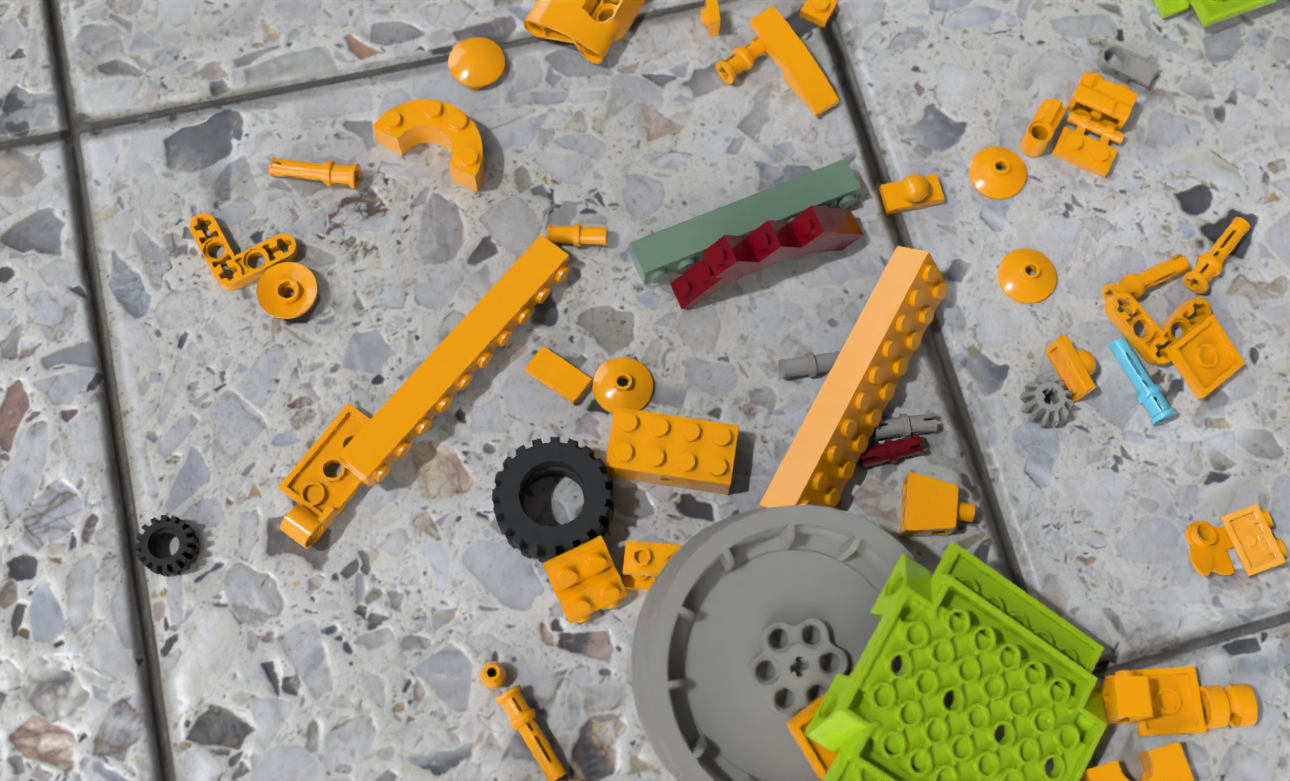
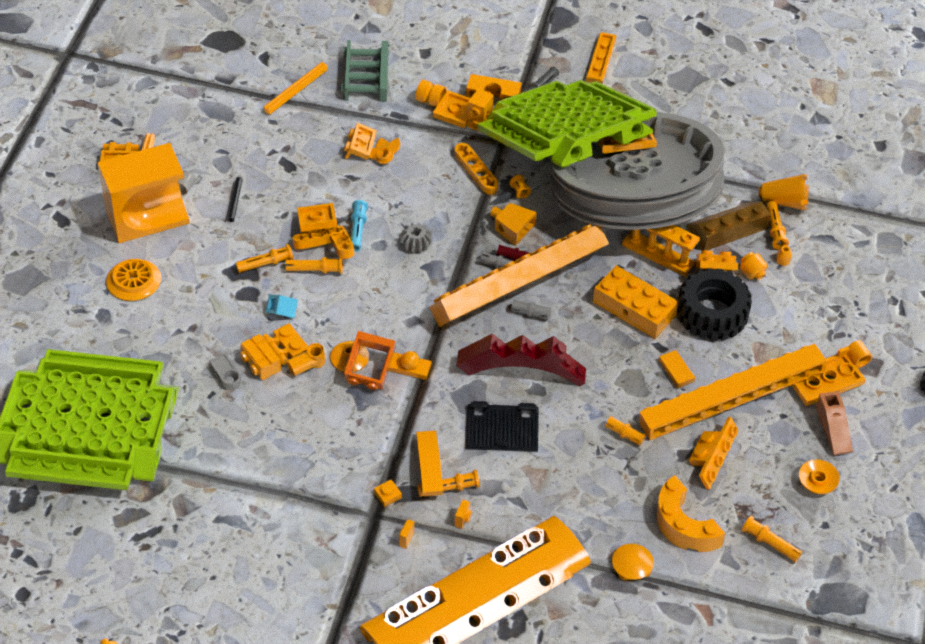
camera: 150 degrees left, 20 degrees down
(239, 263) = (842, 510): light orange beam -> none
(296, 386) = (834, 422): none -> nougat slope
(449, 261) = (712, 450): none -> light orange bracket
(529, 619) = (753, 266): none -> light orange head
(599, 703) = (730, 225): none -> pearl gold slope
(611, 395) = (642, 350): light orange dish -> none
(684, 243) = (513, 390): sand green brick -> none
(738, 165) = (502, 427): none -> black window
(970, 173) = (374, 342): none -> orange window
(1022, 286) = (376, 306): light orange dish -> none
(1055, 589) = (472, 170): none -> light orange beam
(1072, 366) = (389, 245): light orange tile -> none
(1137, 191) = (281, 305): none -> medium azure panel

